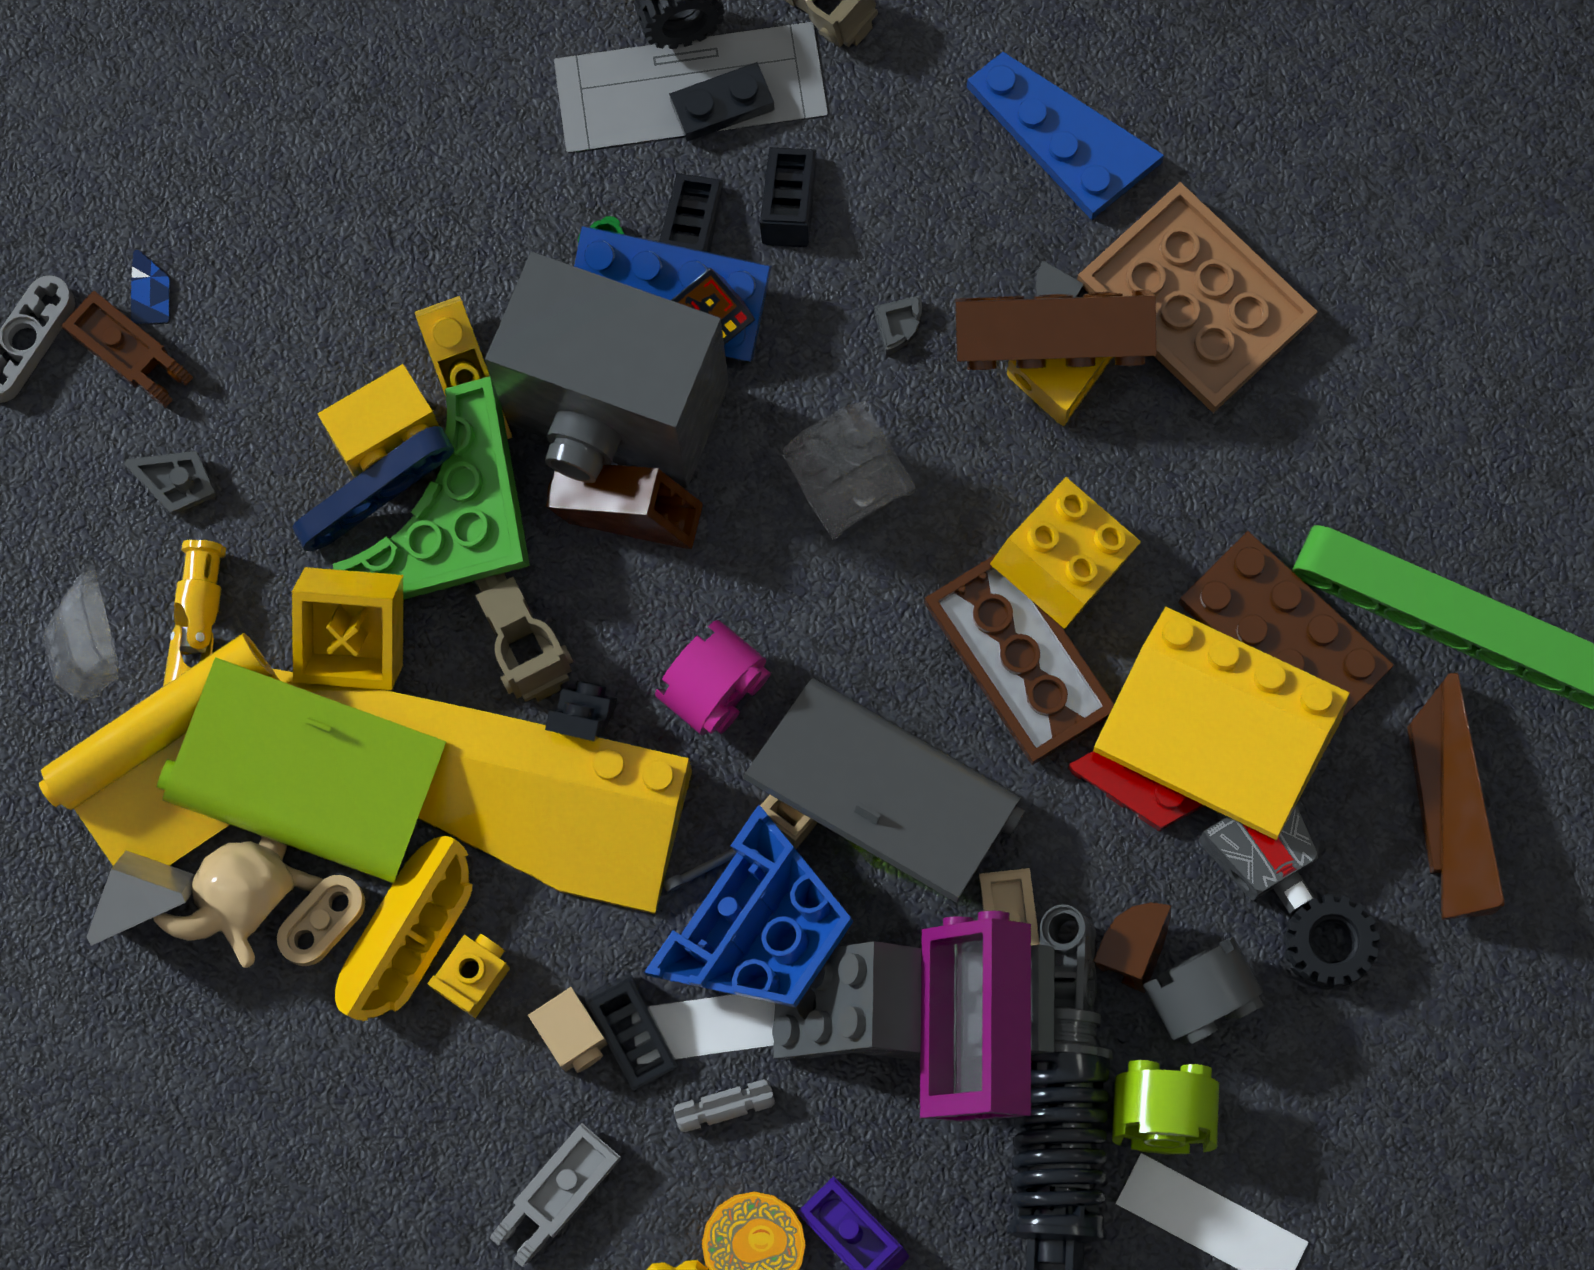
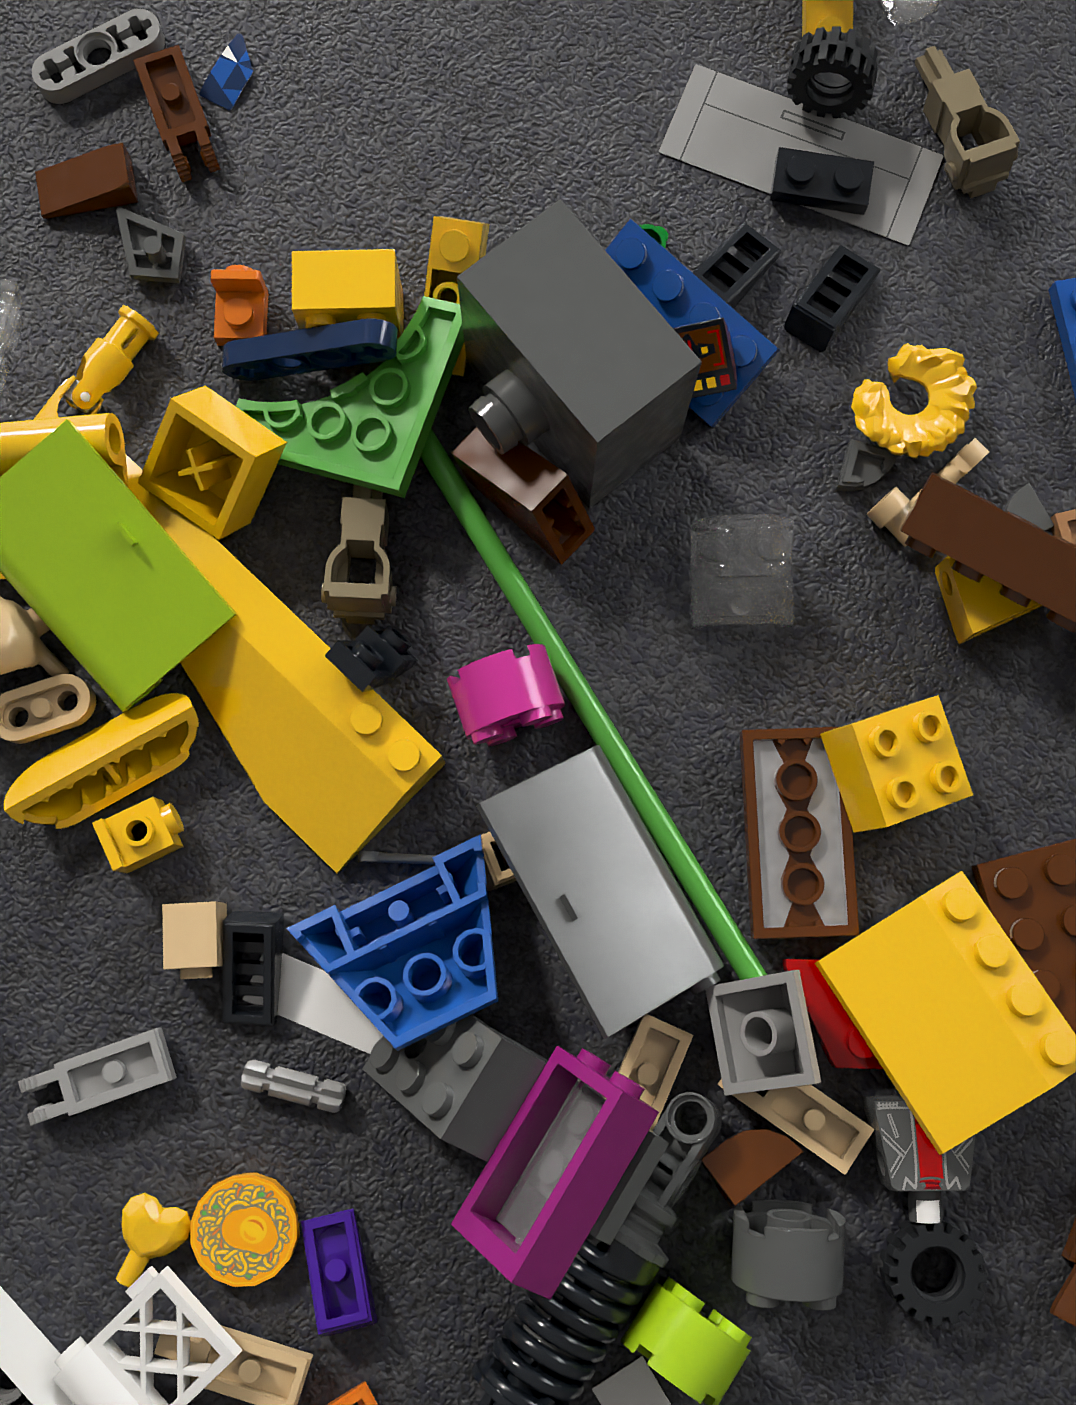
camera: 25 degrees right, 5 degrees up
(81, 455) = (87, 182): none -> reddish brown slope
(283, 485) = (239, 304): none -> orange bracket
(805, 664) = (591, 712): none -> bright green piece
(939, 249) = (935, 427): none -> yellow piece
(943, 343) = (895, 505): none -> tan brick
(1083, 828) = (763, 1033): none -> light grey slope
(1148, 878) = (812, 1121): none -> tan plate

